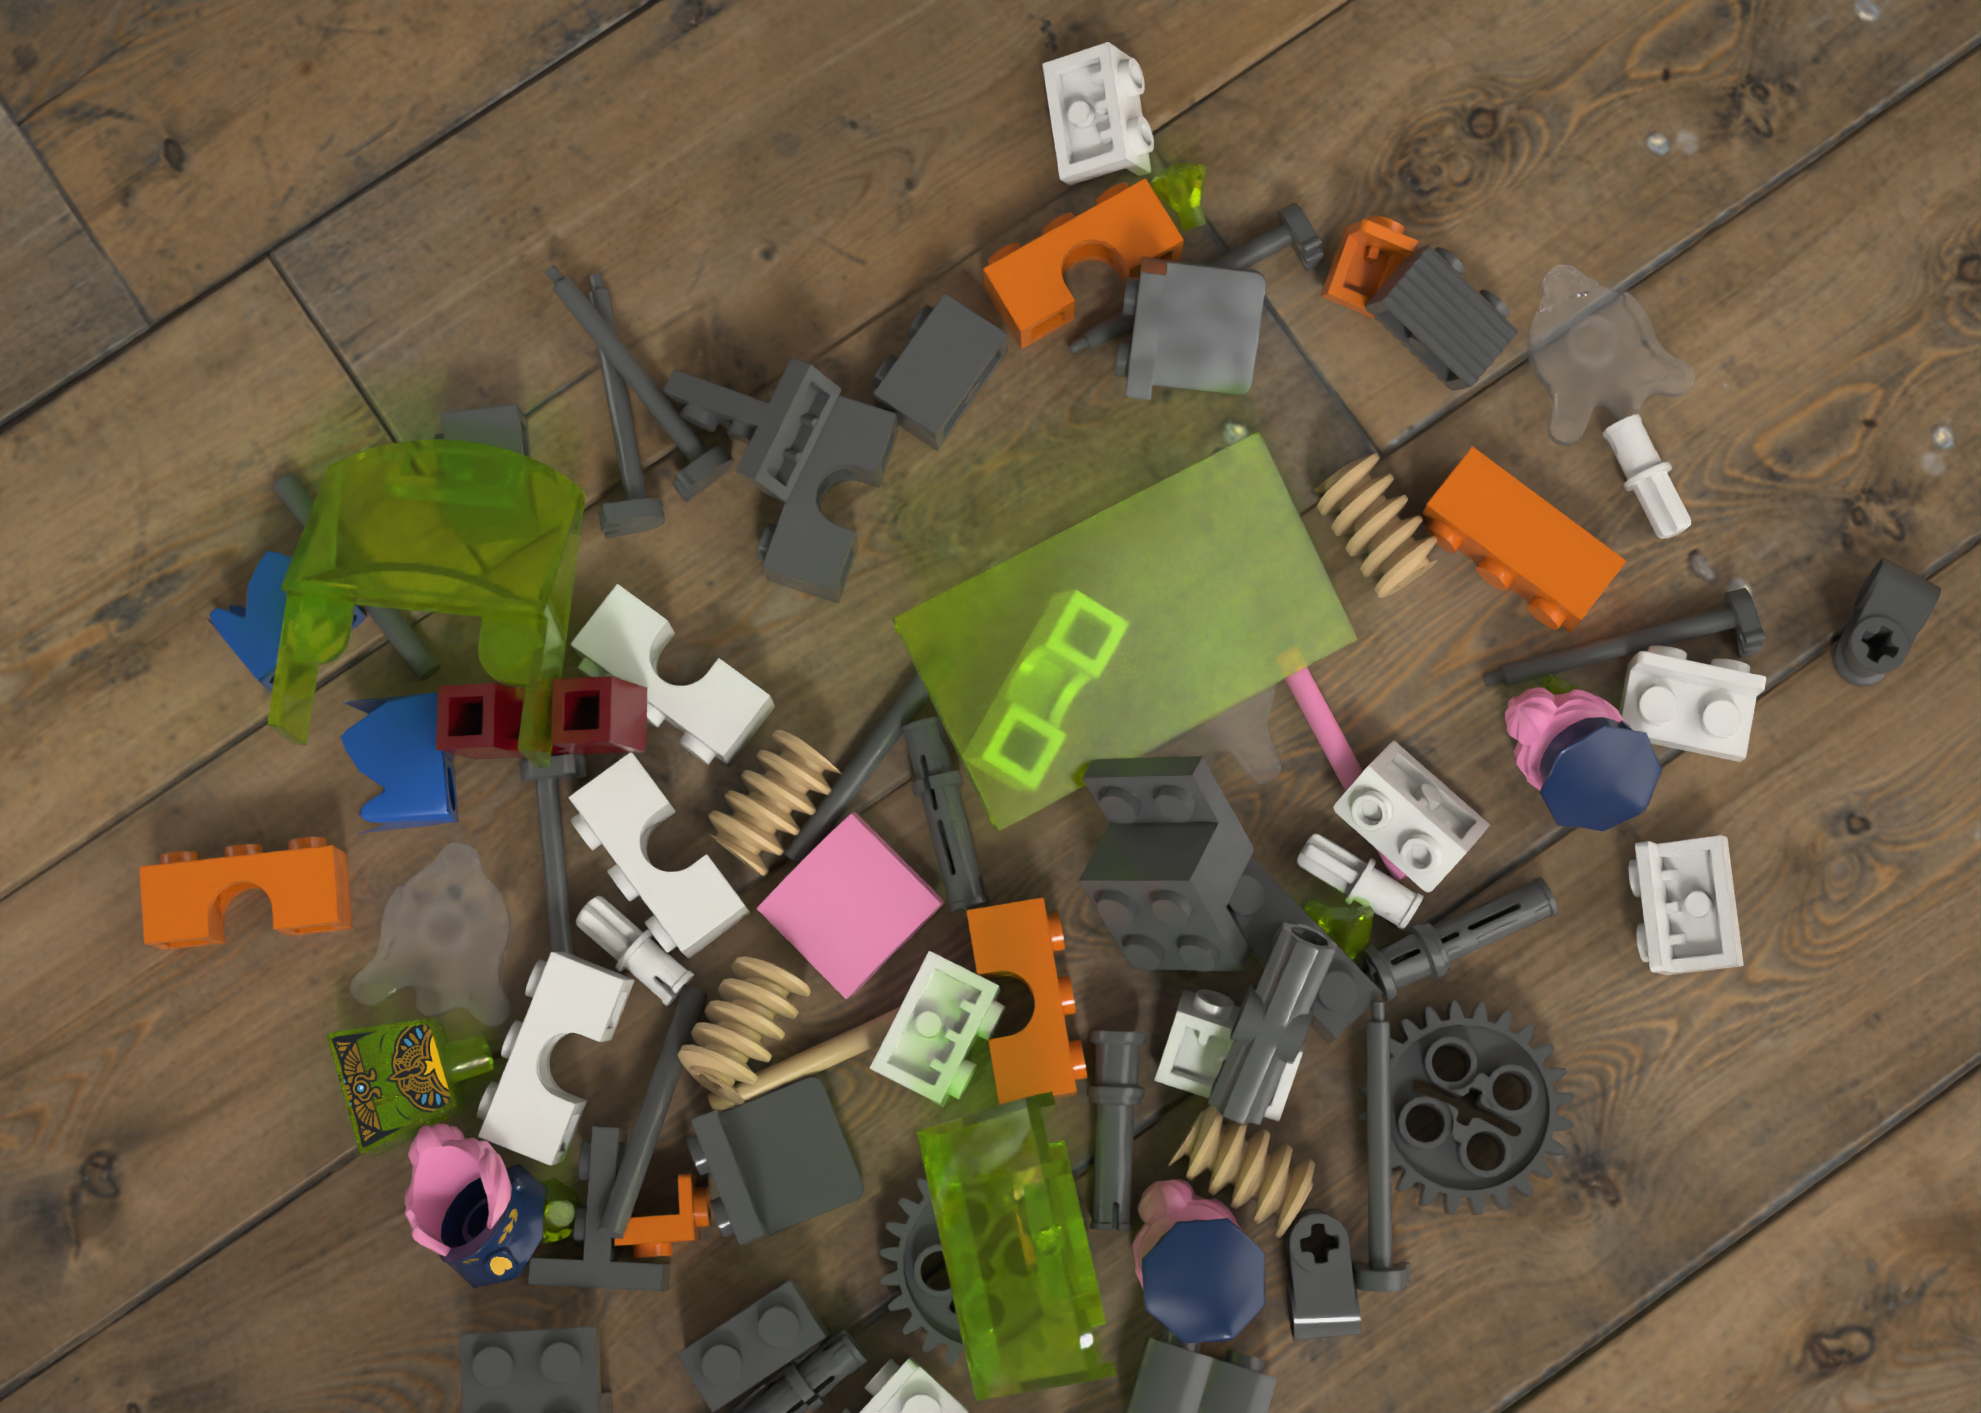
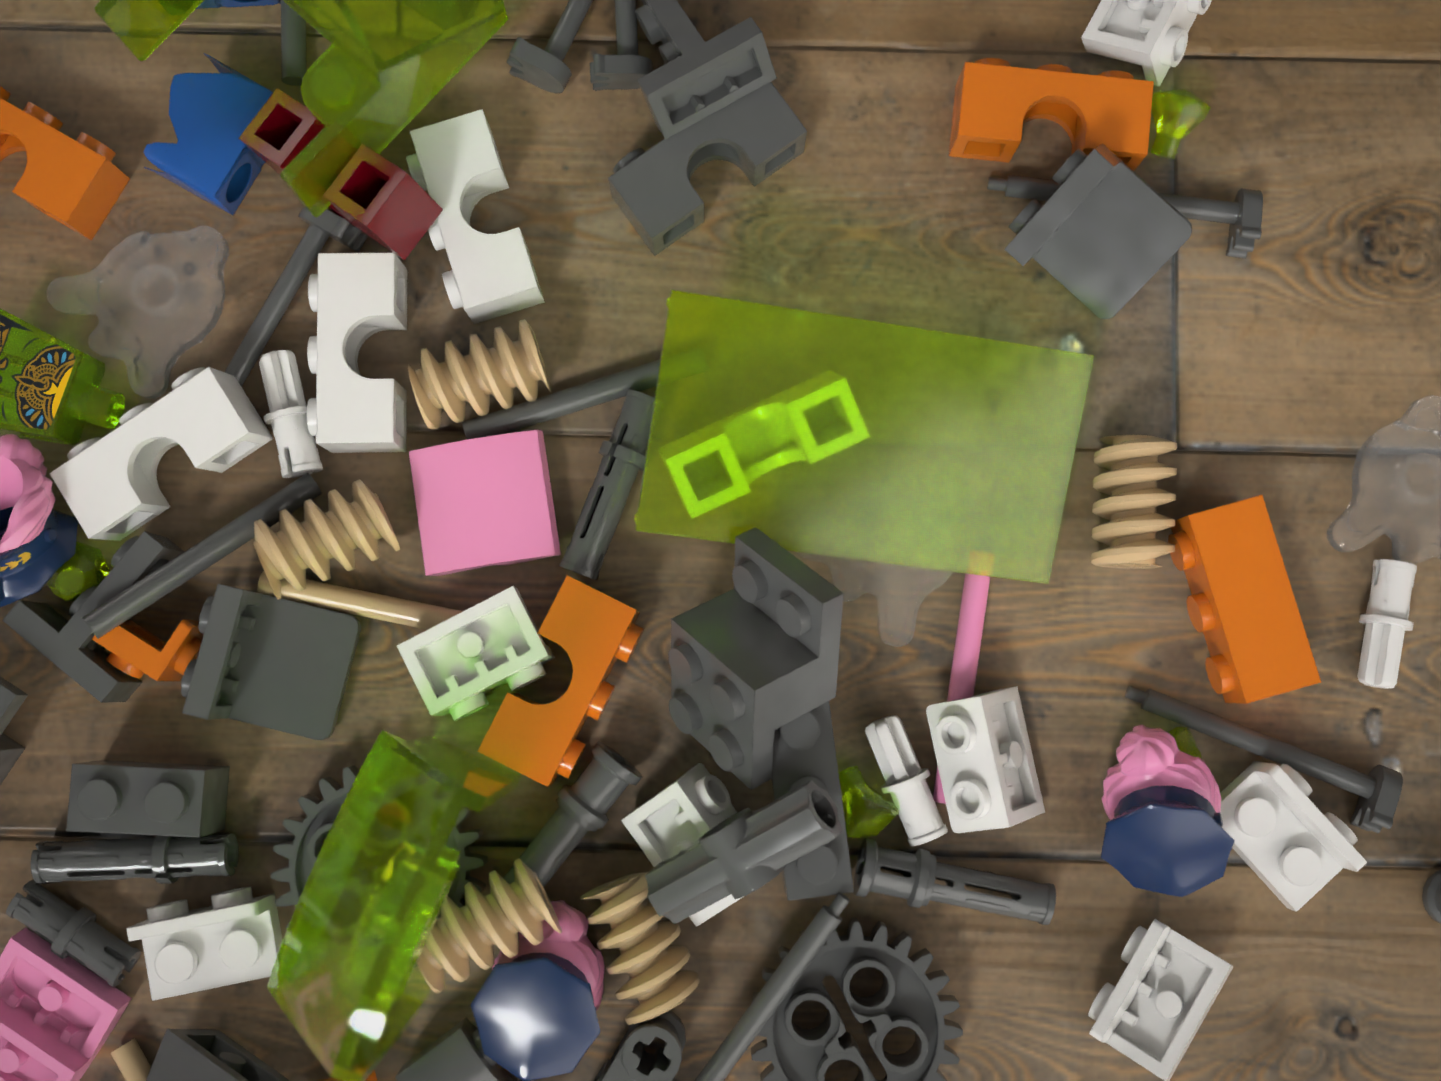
camera: 30 degrees right, 5 degrees up
(939, 370) = (870, 123): dark grey brick -> none
(1117, 1220) = (486, 922): none -> tan piece
(1365, 260) = (1284, 284): orange bracket -> none
(1443, 317) = (1315, 370): dark grey brick -> none

